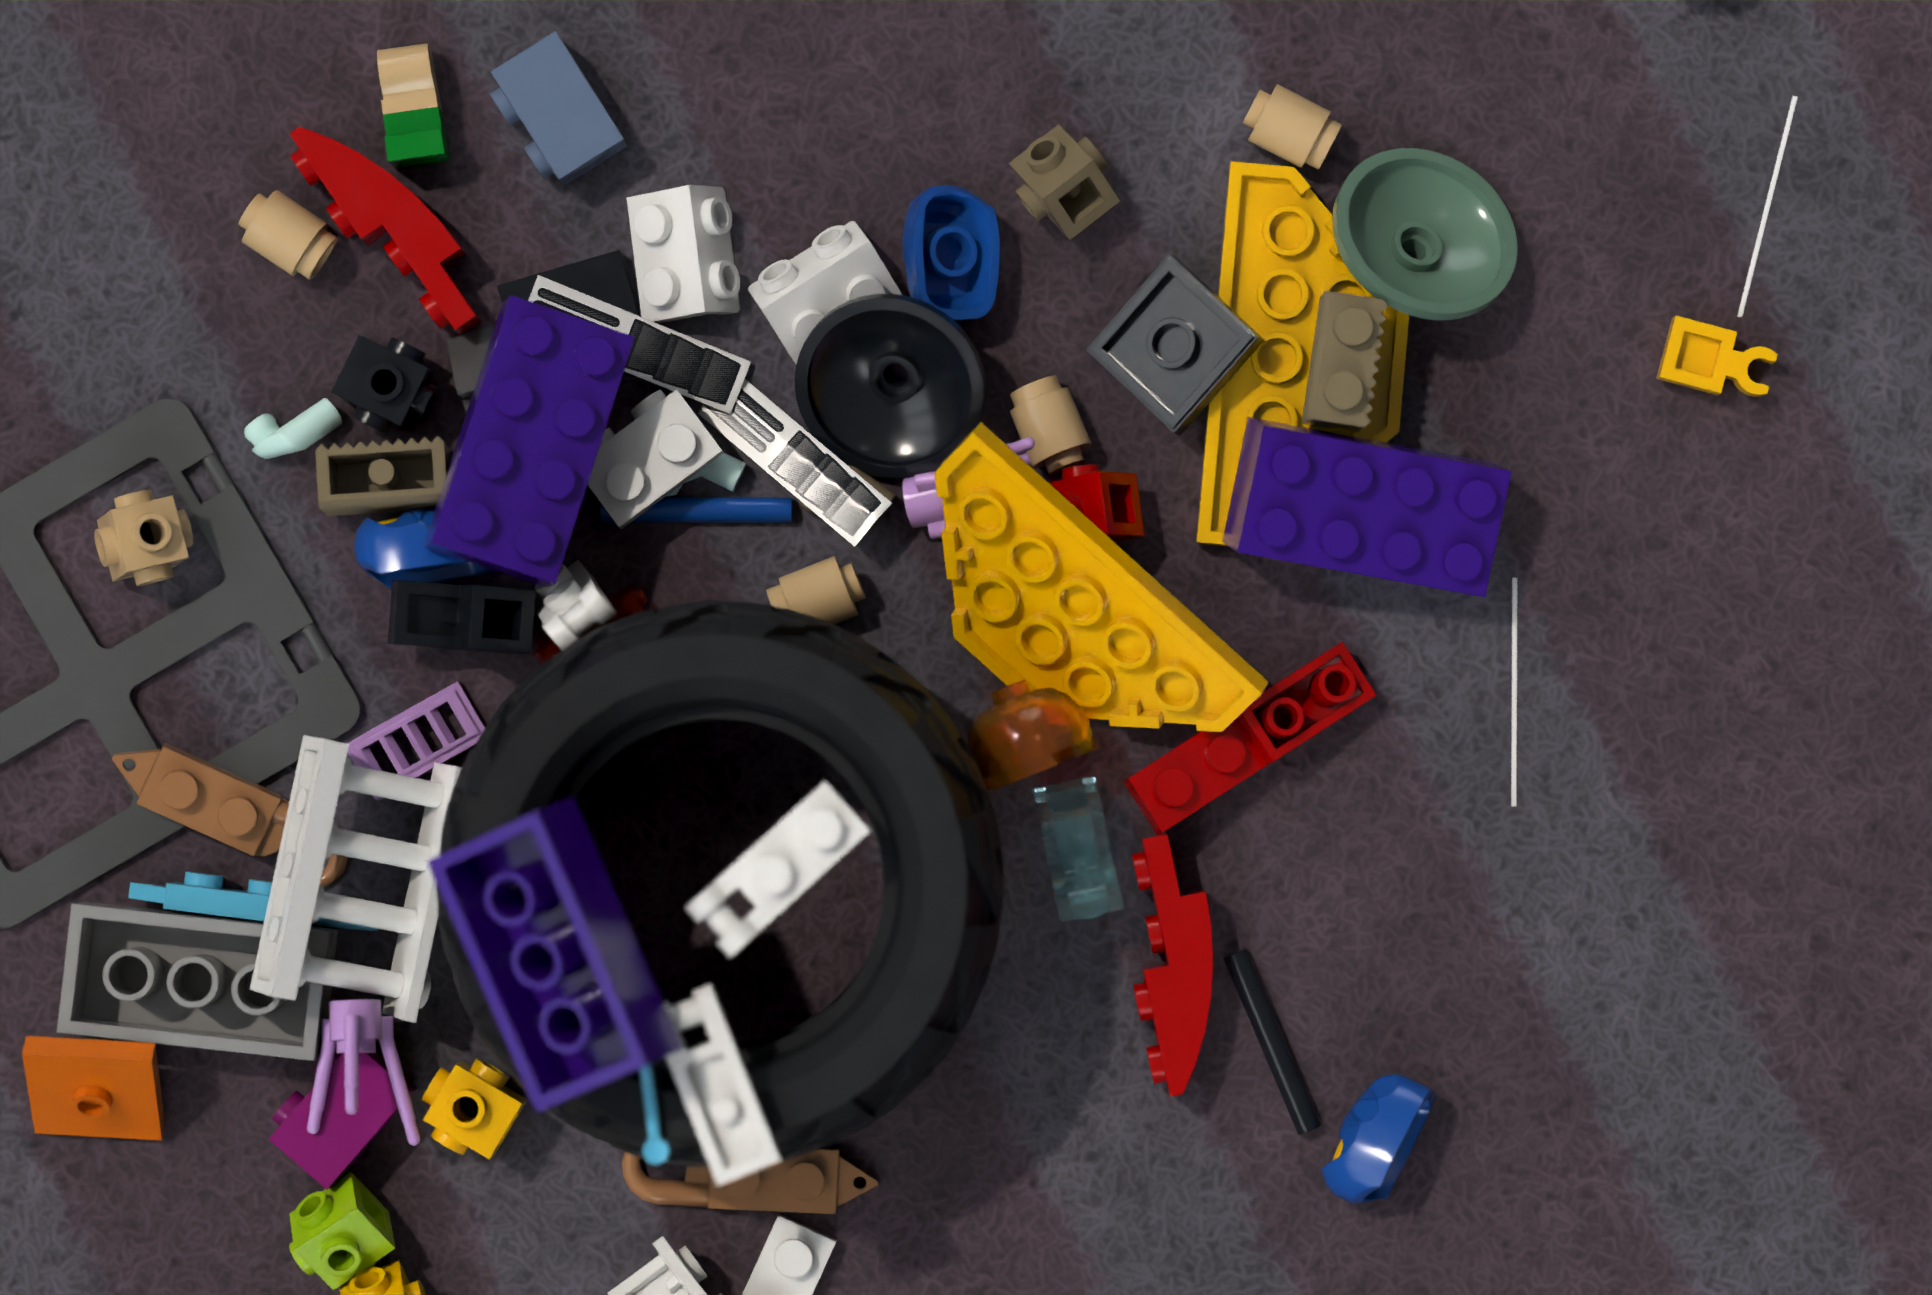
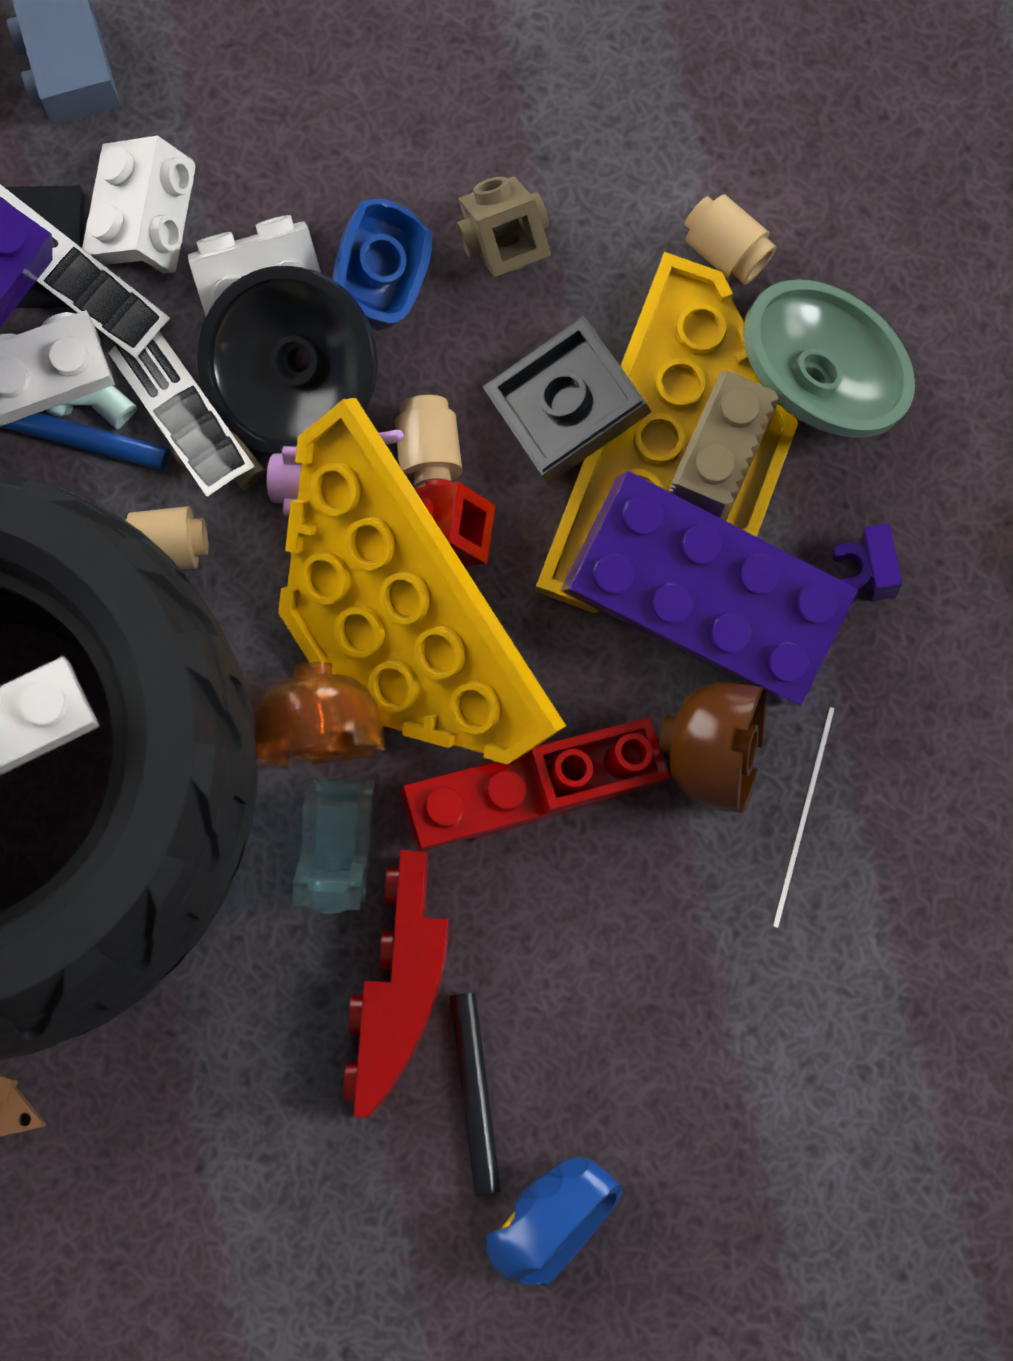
camera: 15 degrees right, 10 degrees down
(1413, 653) = (716, 744): none -> reddish brown cylinder
(1522, 426) = (876, 560): none -> dark purple tile

